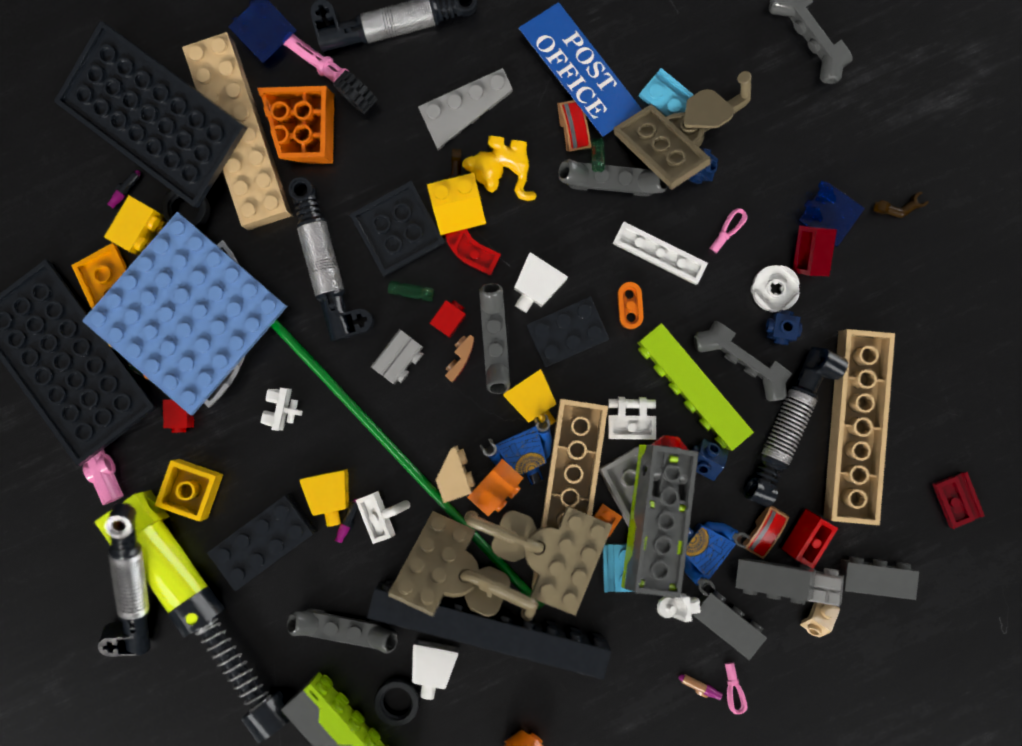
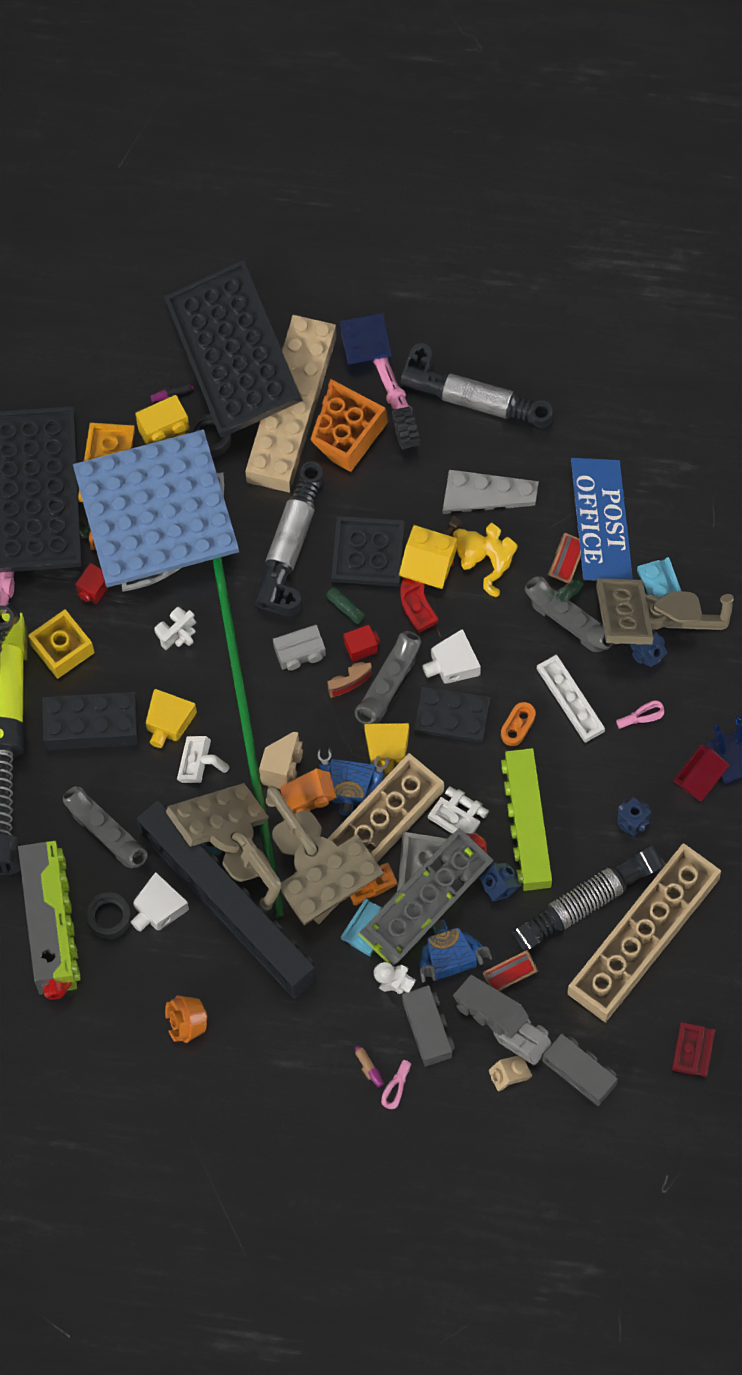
camera: 35 degrees right, 20 degrees down
(347, 523) = (167, 751): piece -> none
(762, 288) = (657, 774): white plate -> none
(773, 375) = (576, 794): dark grey plate -> none
(809, 538) = (543, 995): red brick -> none

